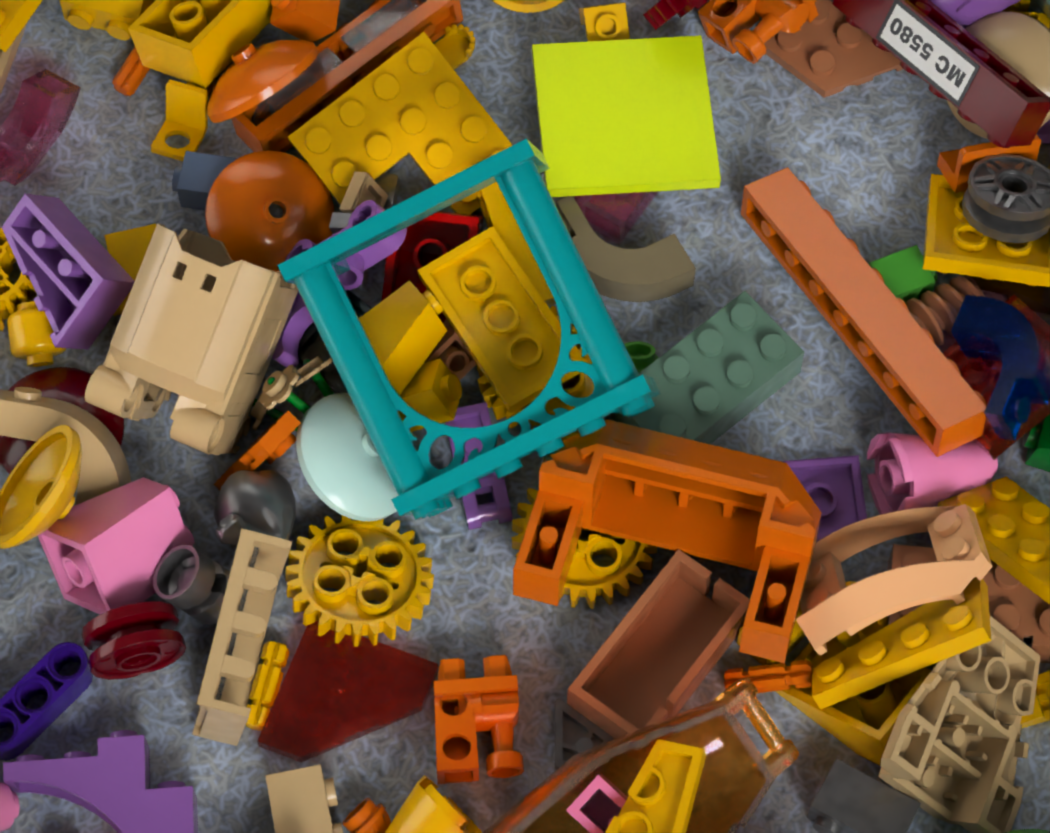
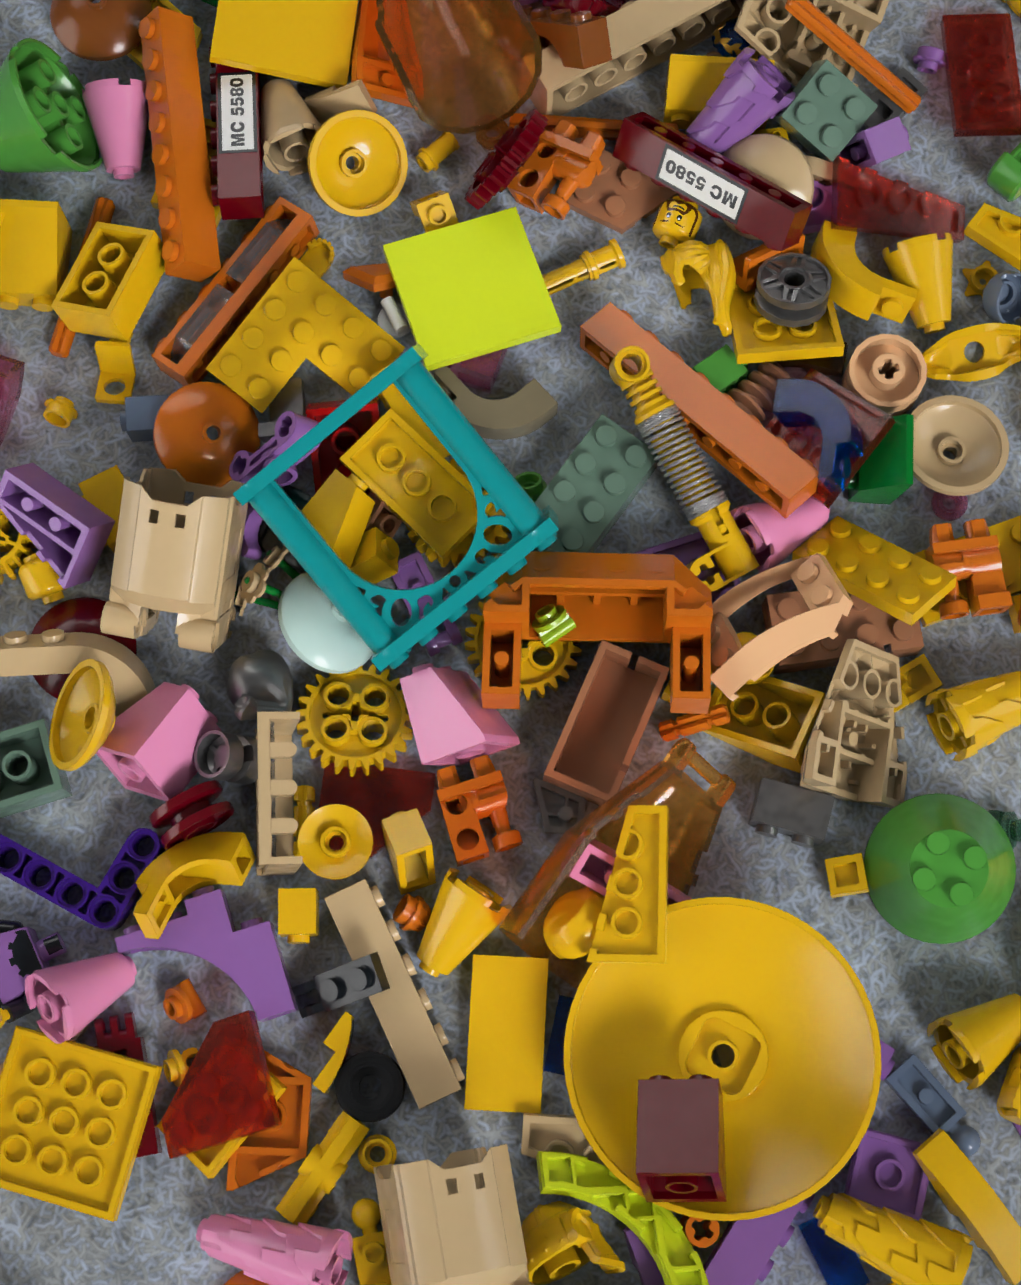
camera: 15 degrees left, 10 degrees up
(105, 150) = (59, 407): none -> yellow plate
(110, 702) = (185, 868): none -> yellow arch
(230, 790) = (298, 914): none -> yellow brick
(258, 75) = (169, 322): orange dish -> none
(267, 446) = (257, 625): orange wing -> none
(294, 690) = (321, 828): none -> yellow dish
(362, 189) = (277, 402): tan tile -> none
(382, 745) = (409, 850): none -> yellow slope
(471, 600) = (450, 717): none -> bright pink slope
(511, 82) = (372, 277): none -> orange piece
(524, 127) = (393, 318): none -> white plate
(622, 514) = (552, 623): none -> lime plate
(772, 124) = (588, 266): none -> yellow pin
(843, 421) = (703, 502): none -> yellow piece
(892, 97) = (676, 222): none -> yellow head
(905, 646) = (798, 680): yellow wing -> none
(910, 152) = (704, 267): none -> yellow hair

